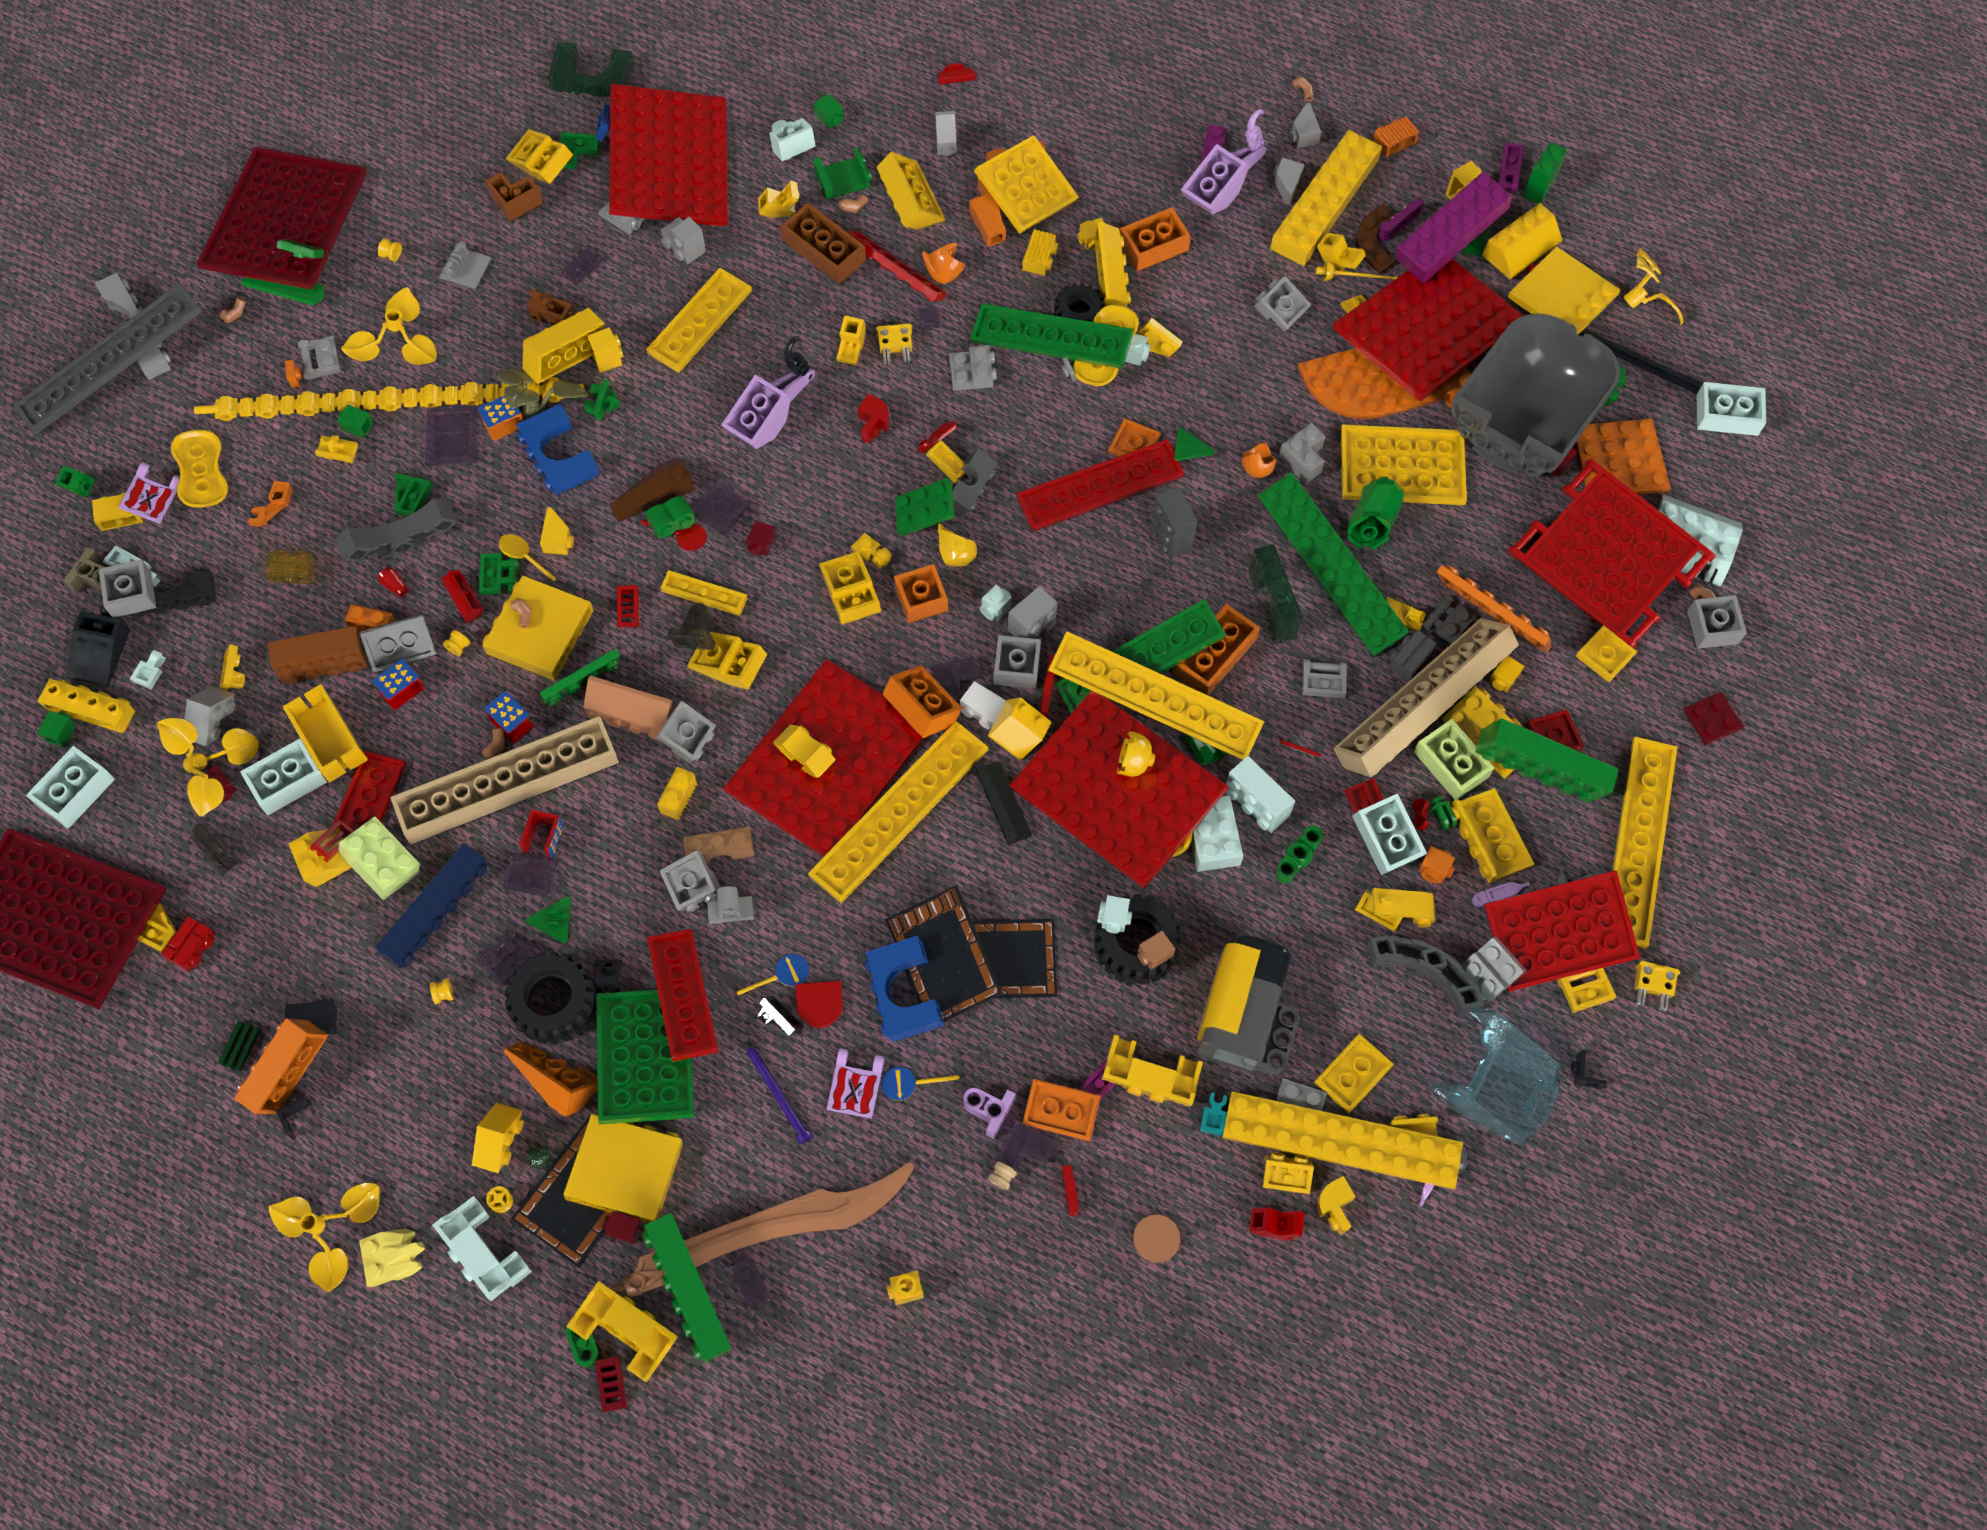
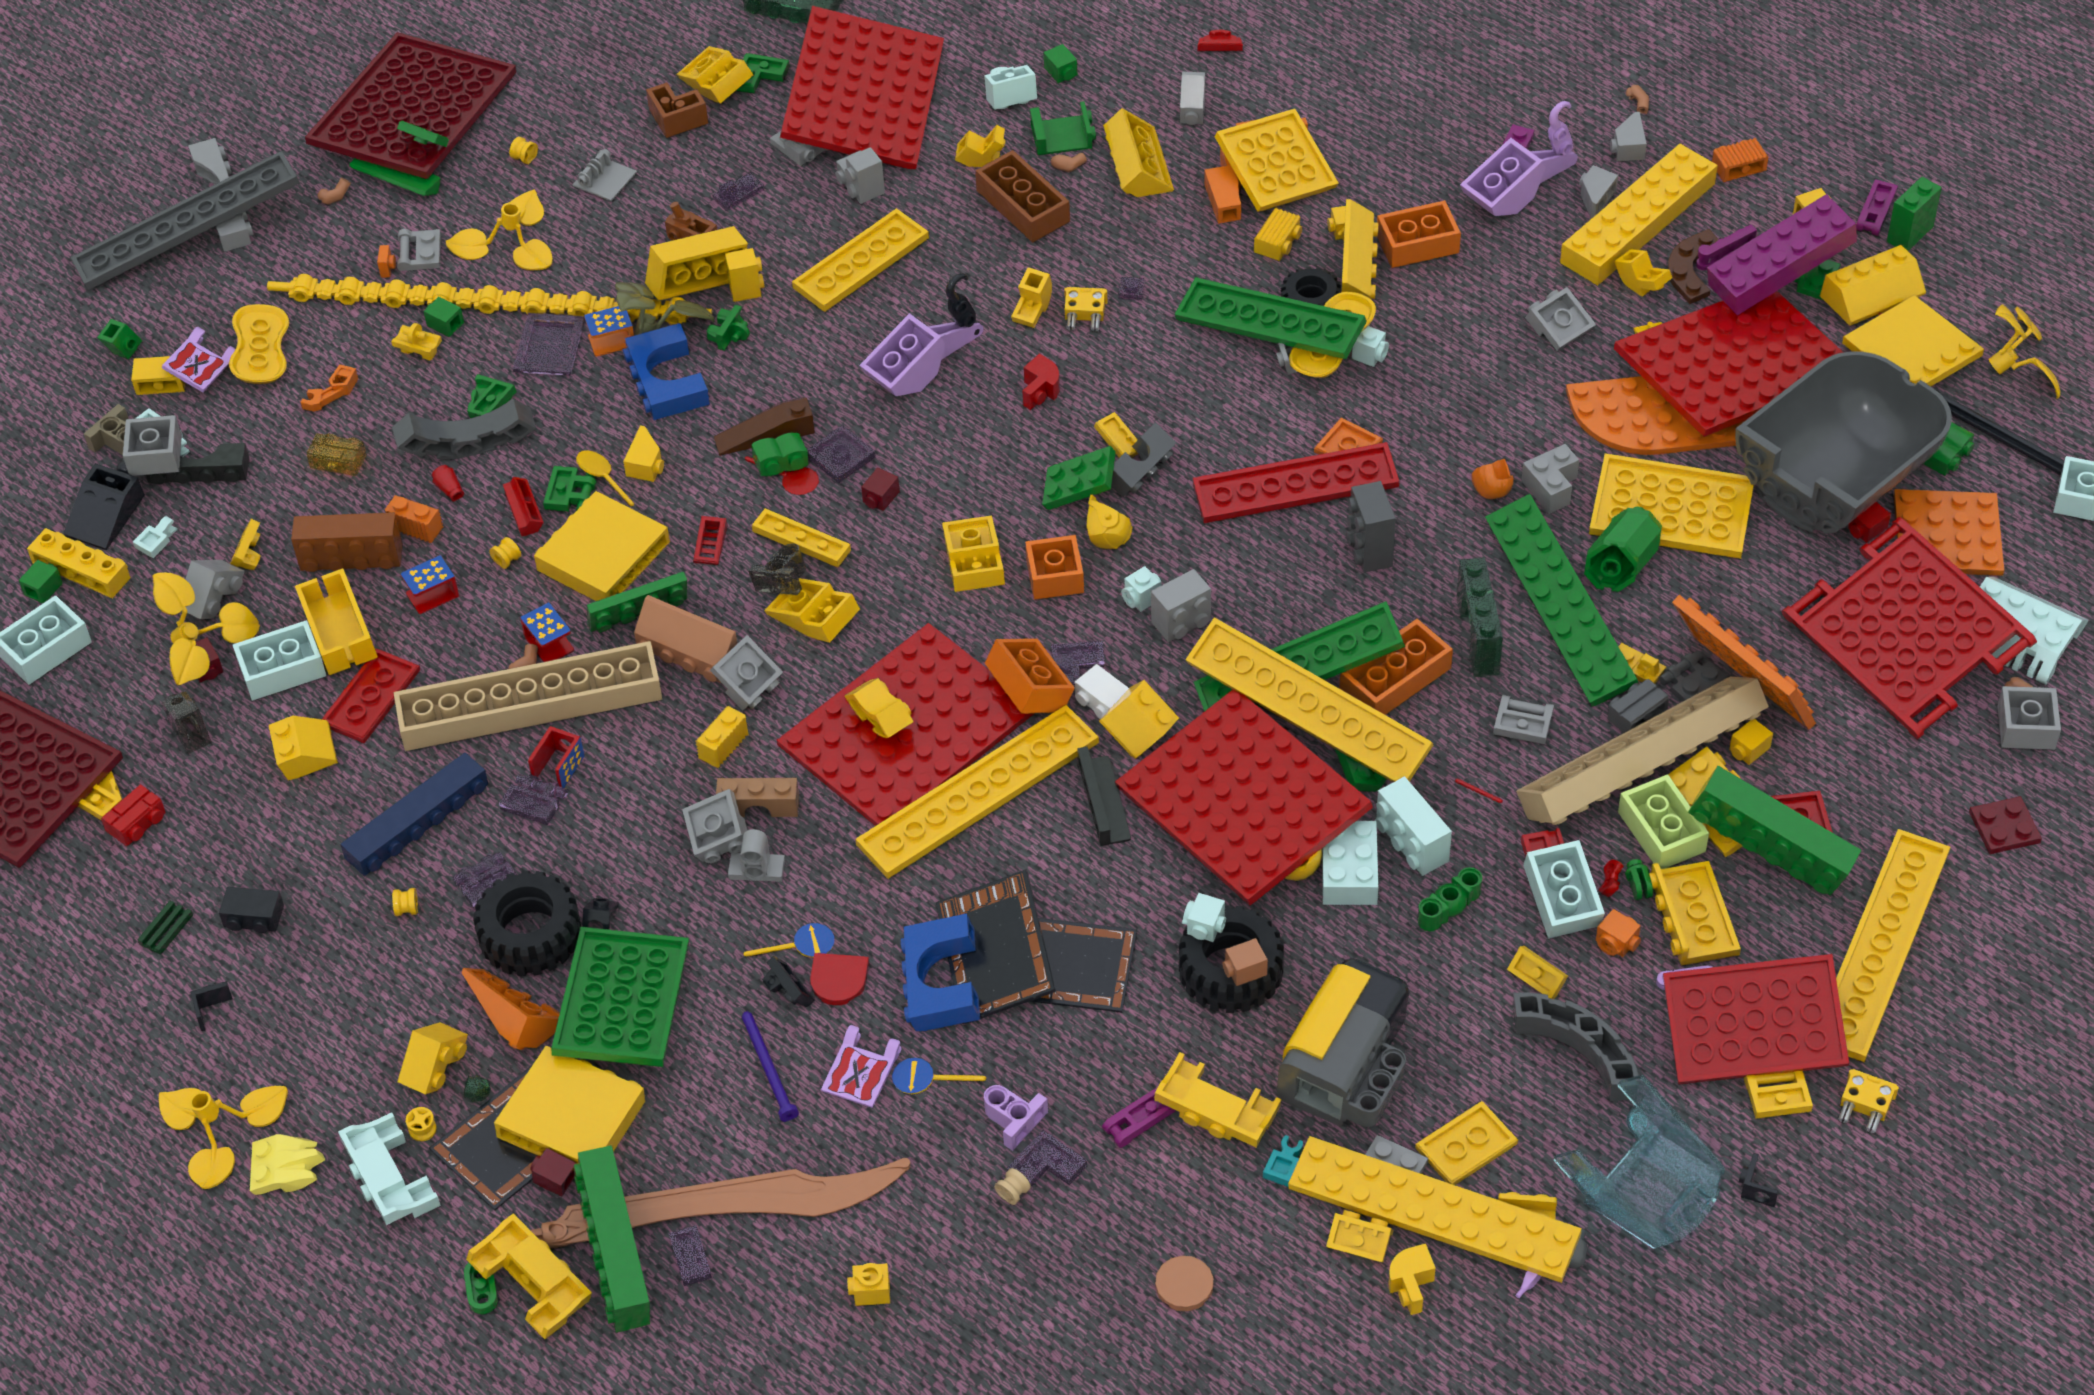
camera: 15 degrees right, 15 degrees down
(280, 1066) = (207, 943): orange brick -> none
(322, 851) = (322, 733): red tile -> none
(379, 858) = (366, 754): yellowish green brick -> none
(396, 640) = (448, 536): tile -> none
(524, 611) = (590, 526): nougat arm -> none
(553, 920) = (549, 850): green piece -> none
(603, 123) = (795, 49): blue plate -> none
(609, 1362) = (504, 1315): dark red slope -> none
(682, 995) = (678, 940): red plate -> none
(870, 548) = (1007, 517): yellow plate -> none
(901, 270) = (1108, 234): red plate -> none
(936, 436) = (1114, 408): red piece -> none
(942, 264) = (1159, 234): orange piece -> none
(972, 368) = (1171, 345): light grey plate -> none
(1017, 662) = (1152, 651): light grey brick -> none
(1047, 689) = (1183, 688): red tile -> none
(1061, 1110) = (1100, 1126): orange tile -> none
(1070, 1190) = (1090, 1221): red tile -> none
(1135, 755) = (1266, 754): yellow cylinder -> none
(1159, 338) = (1401, 337): yellow wing -> none
(1190, 447) = (1413, 455): green piece -> none
(1277, 1224) = (1331, 1287): red brick -> none
(1329, 271) = (1625, 292): yellow sword -> none
(1405, 904) = (1568, 965): yellow door -> none
(1493, 969) = (1661, 1050): light grey plate -> none
(1606, 654) = (1882, 737): yellow plate -> none

